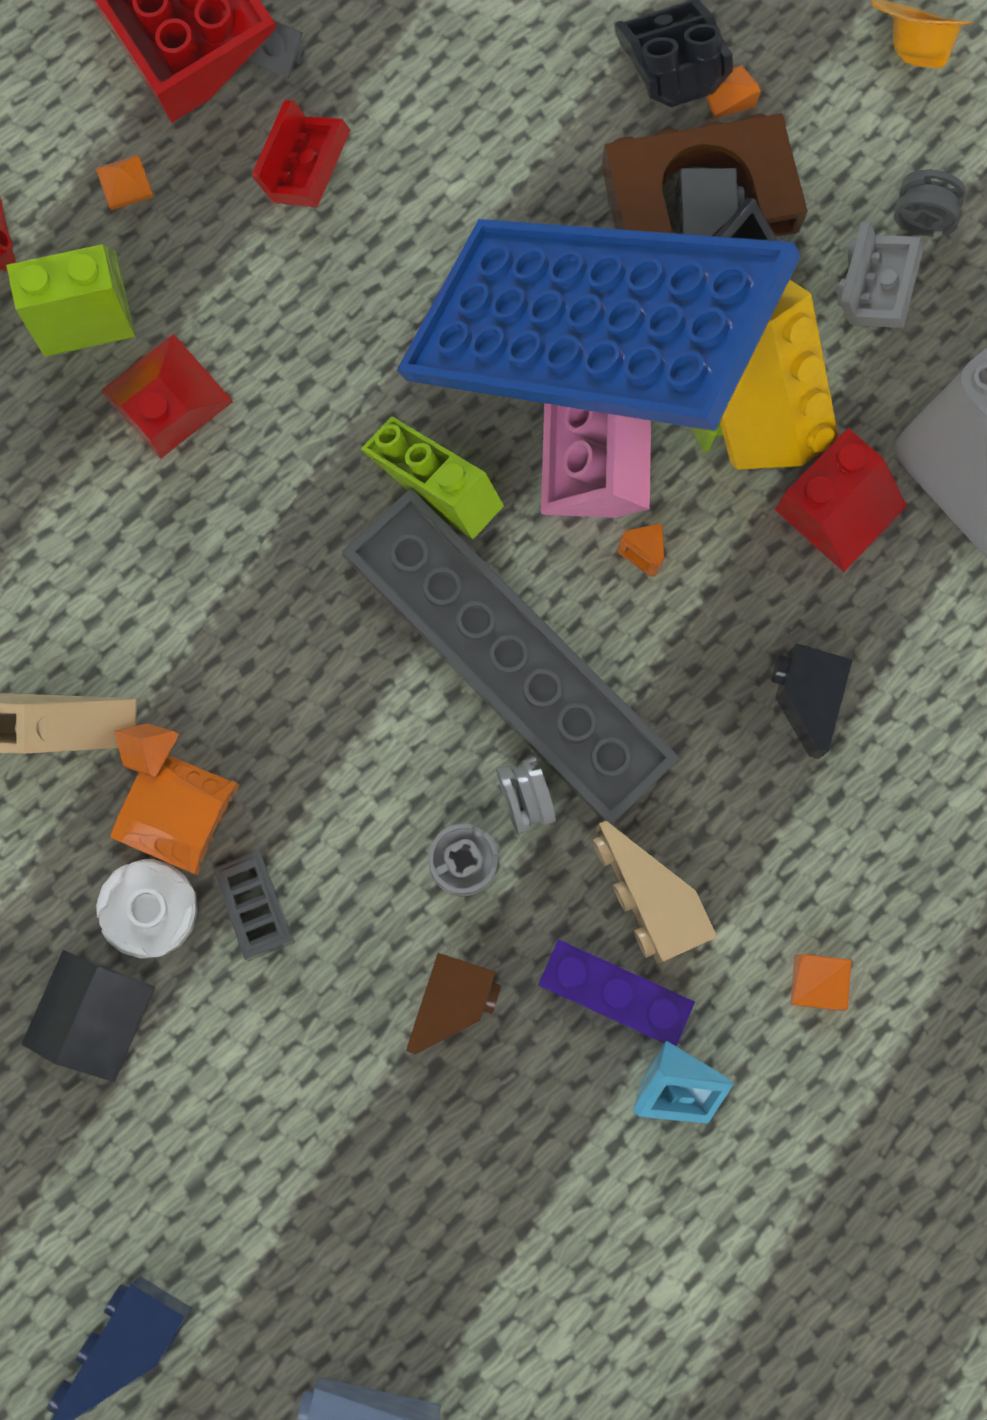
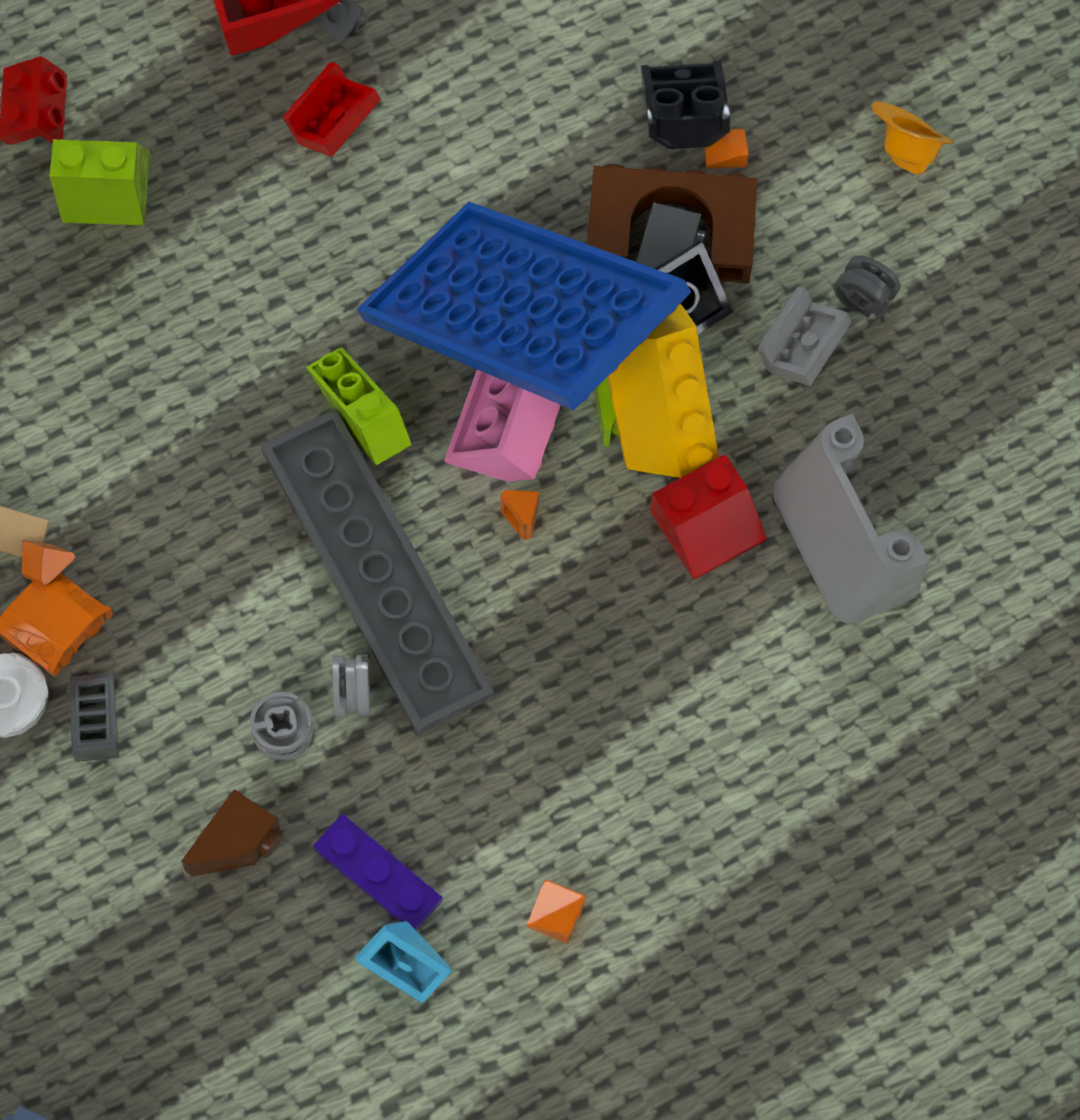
camera: 20 degrees right, 10 degrees down
(124, 182) = (175, 95): orange slope -> none
(167, 396) = (155, 281): red slope -> none
(663, 904) = (440, 805): tan slope -> none
(811, 694) = (627, 668): black slope -> none

